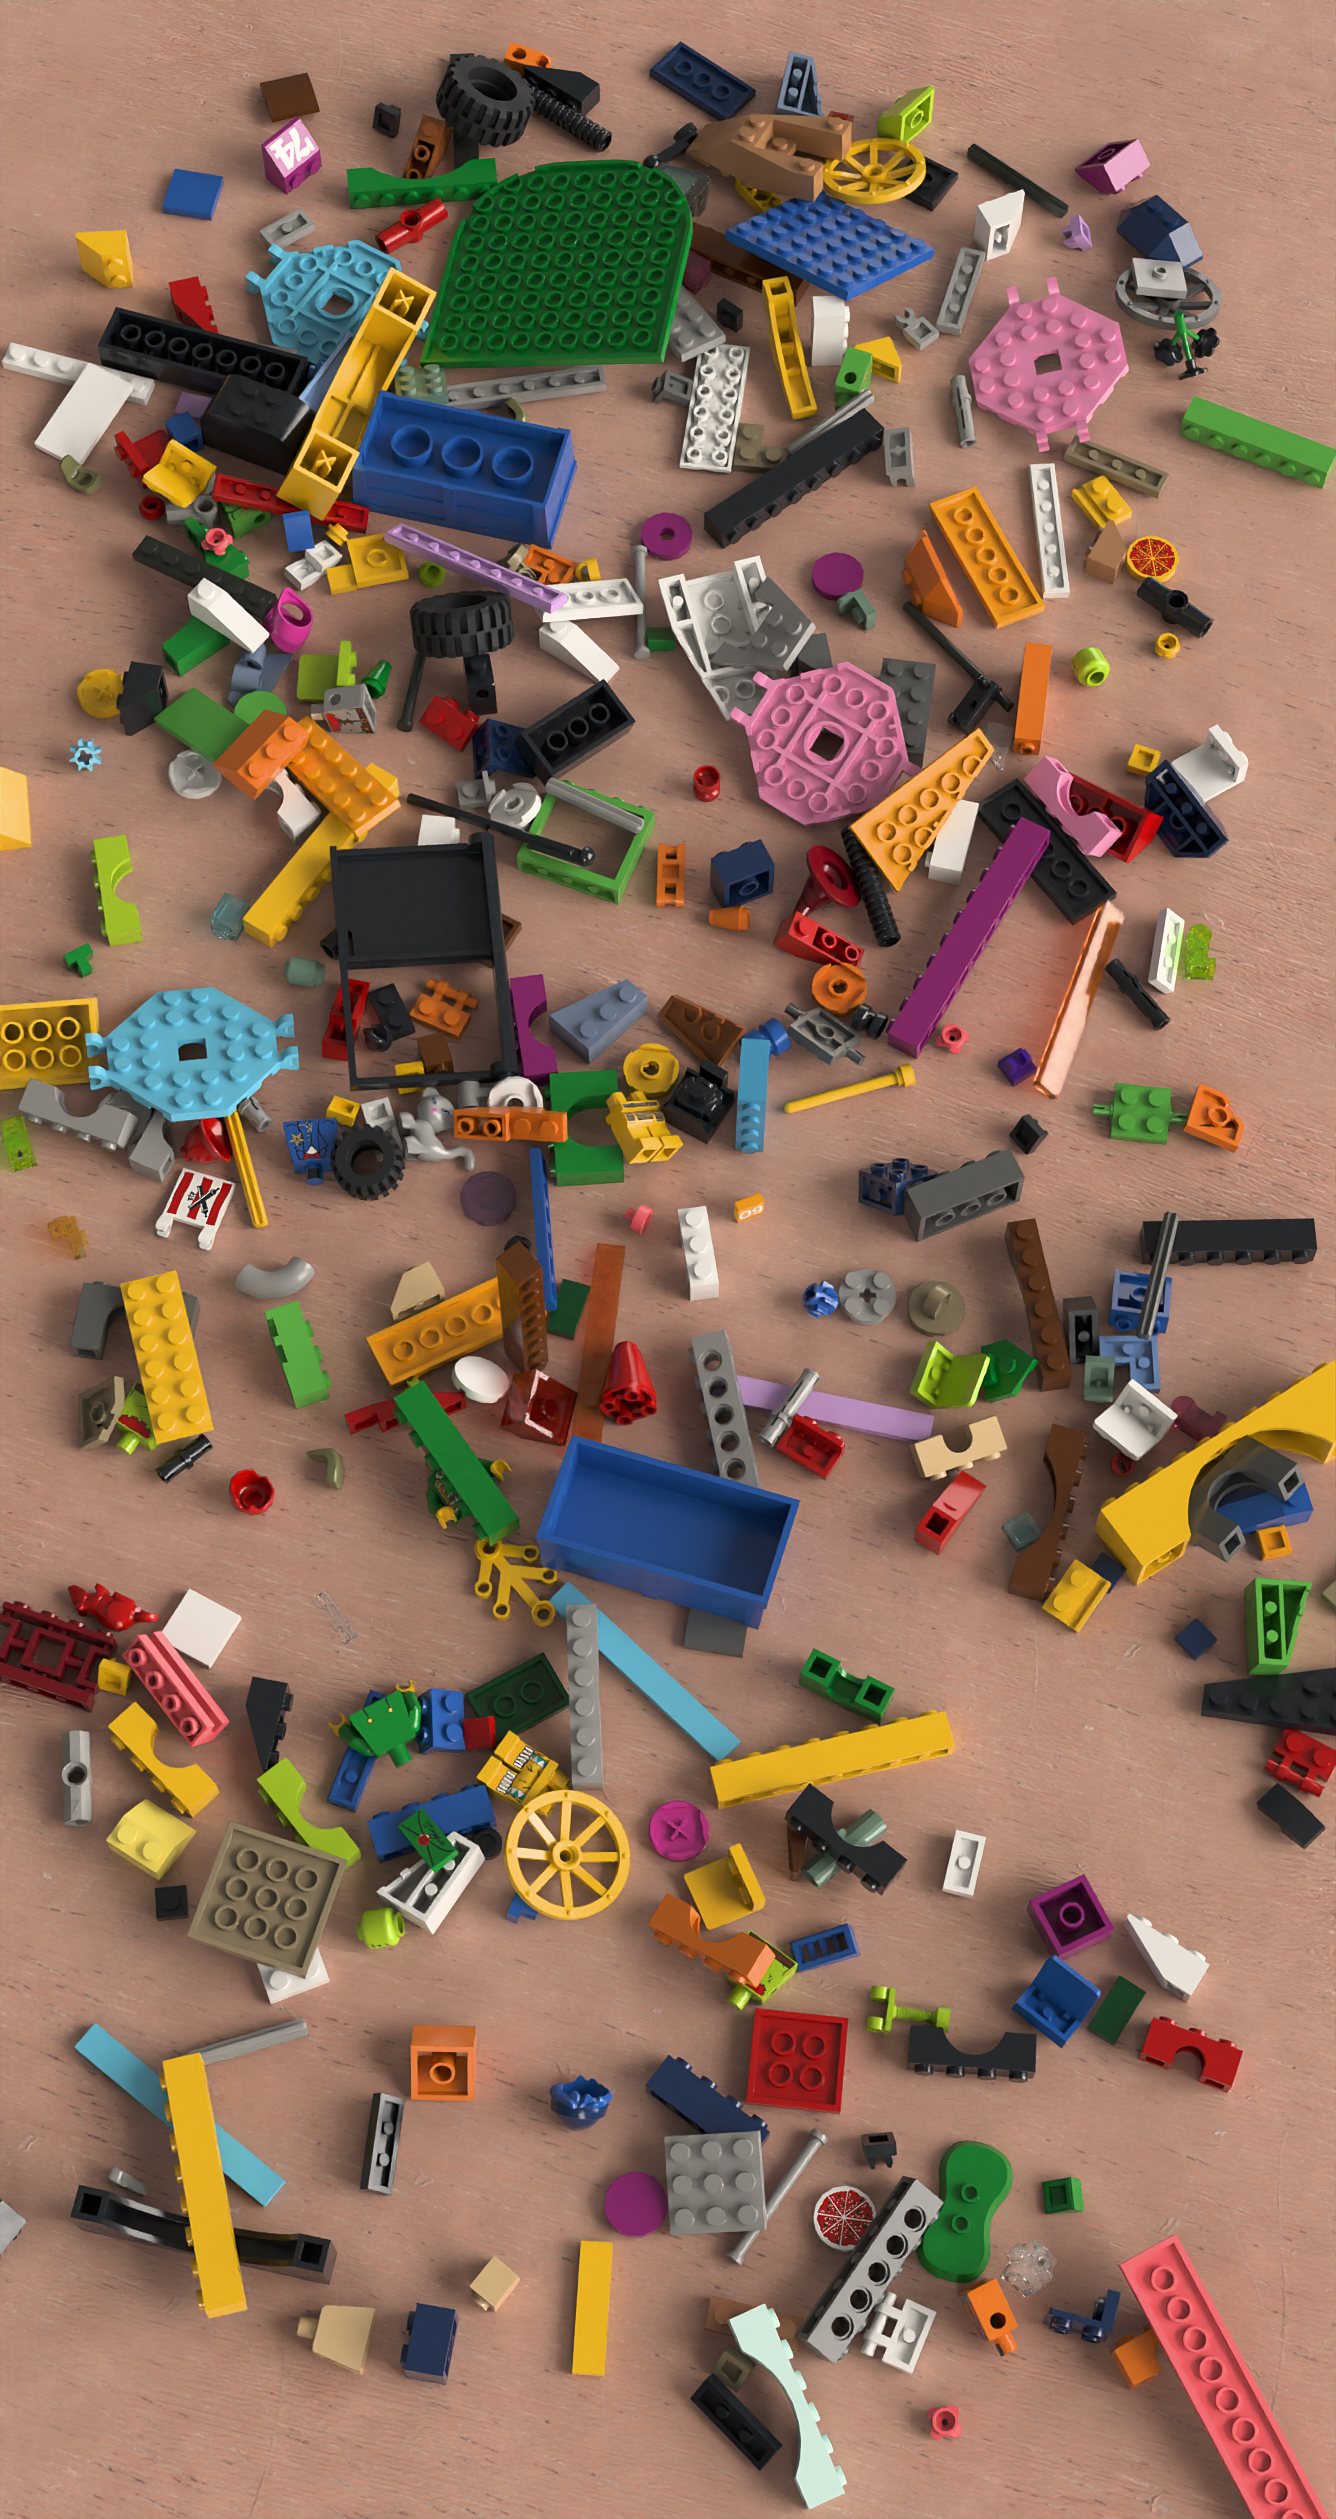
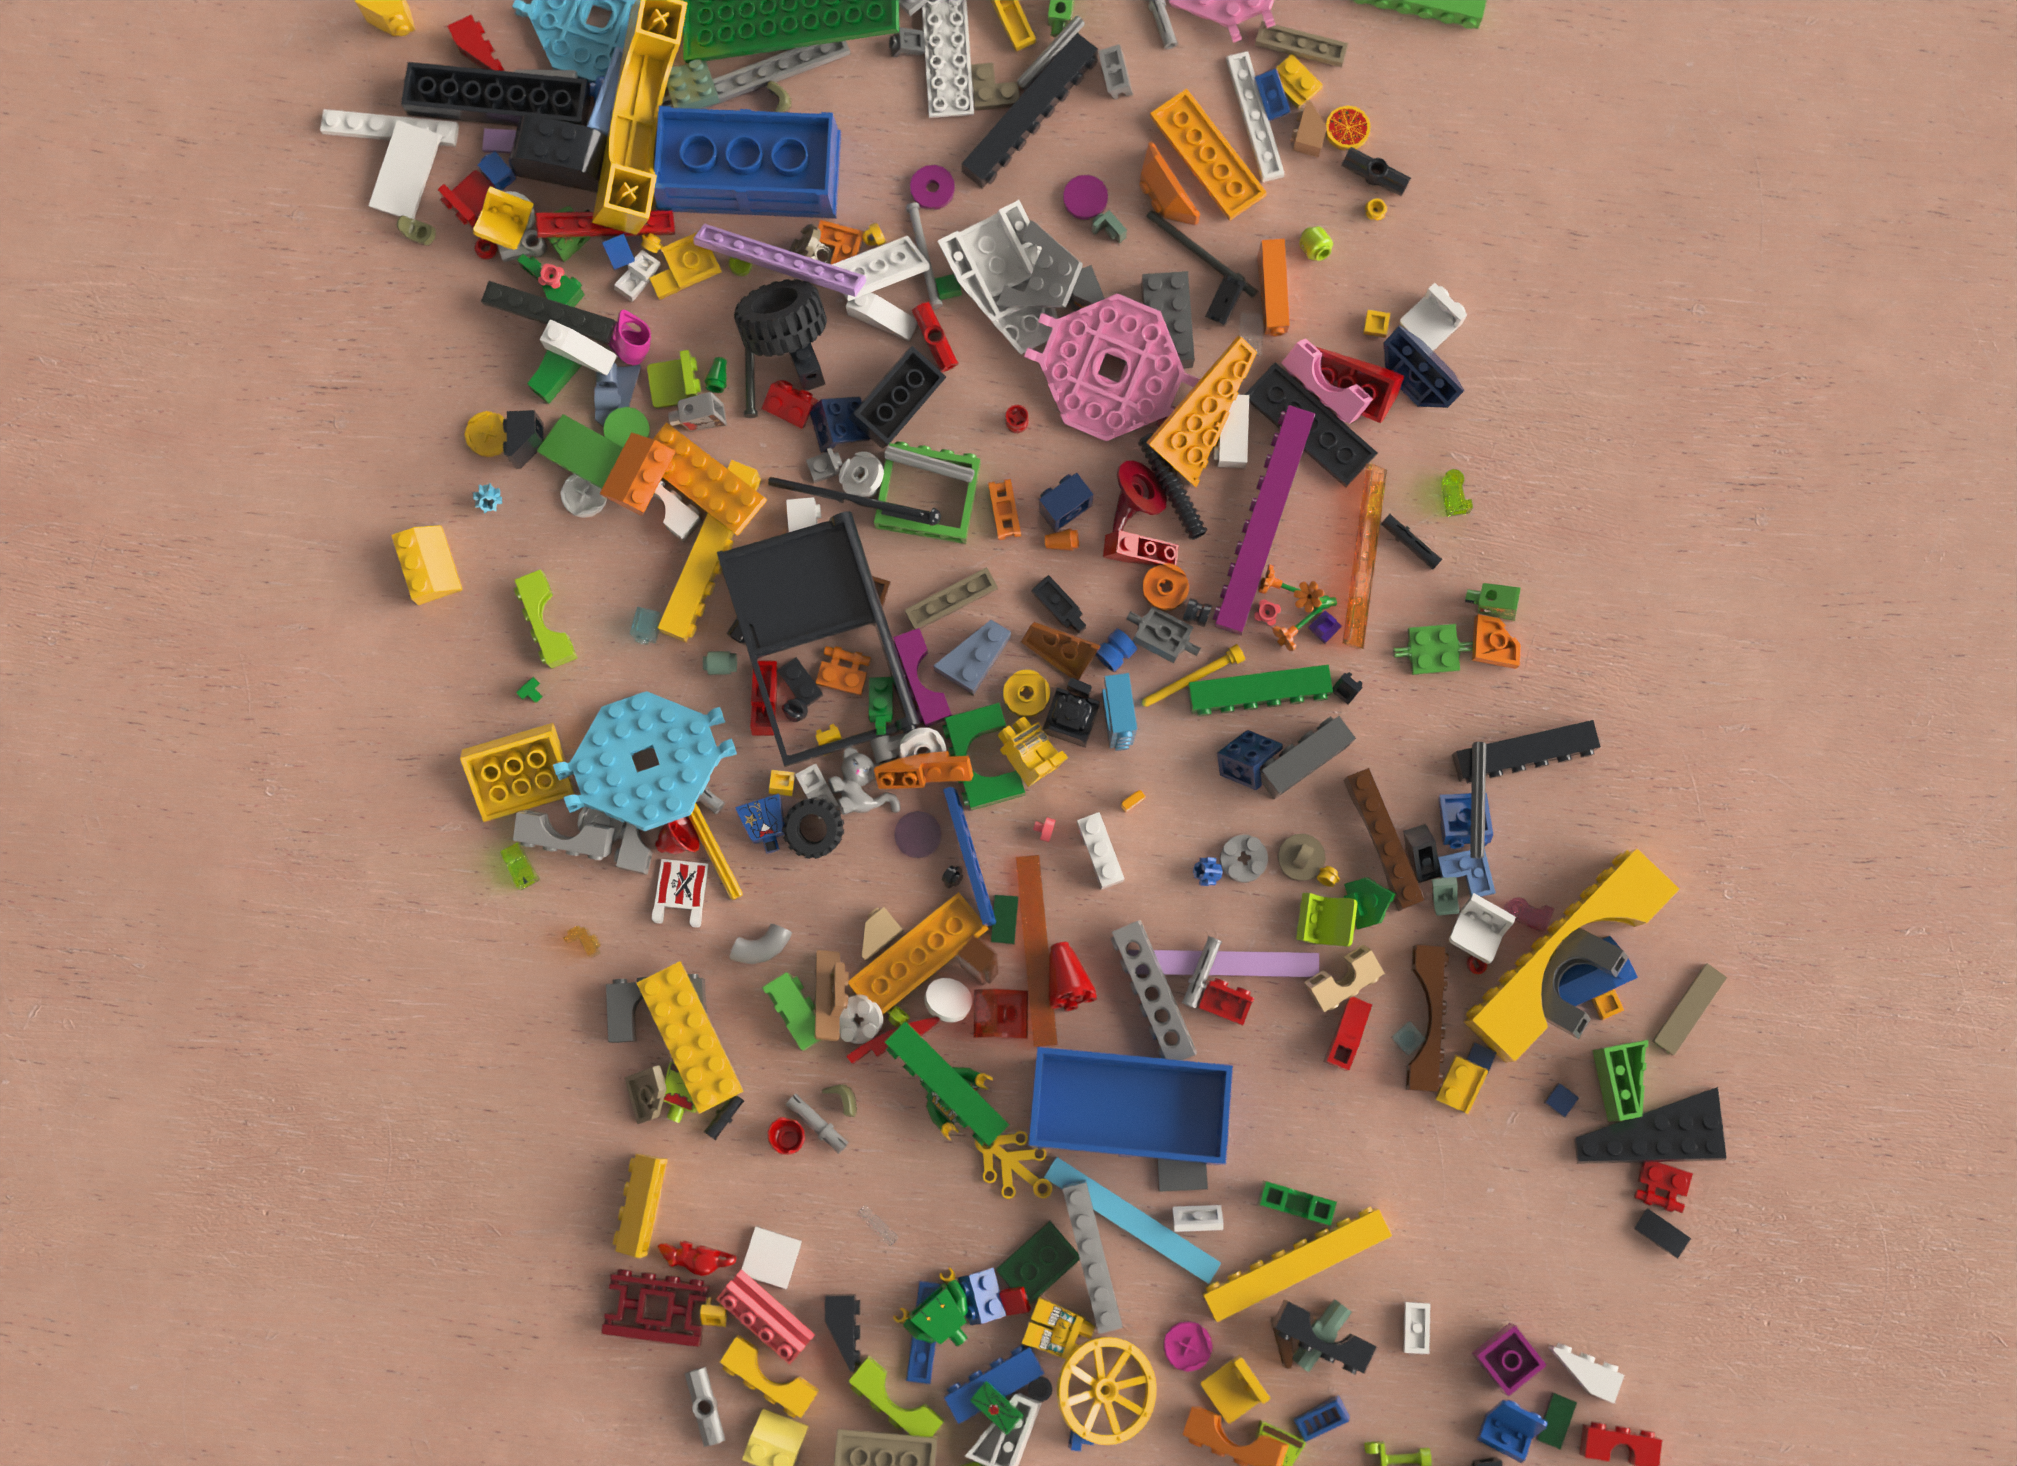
camera: 10 degrees left, 15 degrees up
(61, 1534) = (640, 1206): none -> yellow slope
(298, 1497) = (814, 1121): none -> light grey pin
(341, 1344) = (829, 994): none -> medium nougat bracket
(356, 1372) = (869, 1028): none -> white plate
(435, 1054) = (846, 717): reddish brown brick -> none
(479, 1046) = (880, 702): none -> green hinge
(587, 955) = (951, 599): none -> dark tan plate
(630, 671) = (928, 325): none -> red piece
(711, 984) = (1059, 604): none -> black hinge
(722, 1683) = (1197, 1218): none -> white plate
(925, 1116) = (1260, 689): none -> green brick
(963, 1334) = (1328, 876): none -> yellow plate
(1001, 1018) = (1308, 595): none -> orange plant
(1072, 509) = (1272, 94): none -> blue plate
(1166, 951) = (1427, 497): plate -> none
(1225, 1071) = (1504, 600): none -> bright green torso

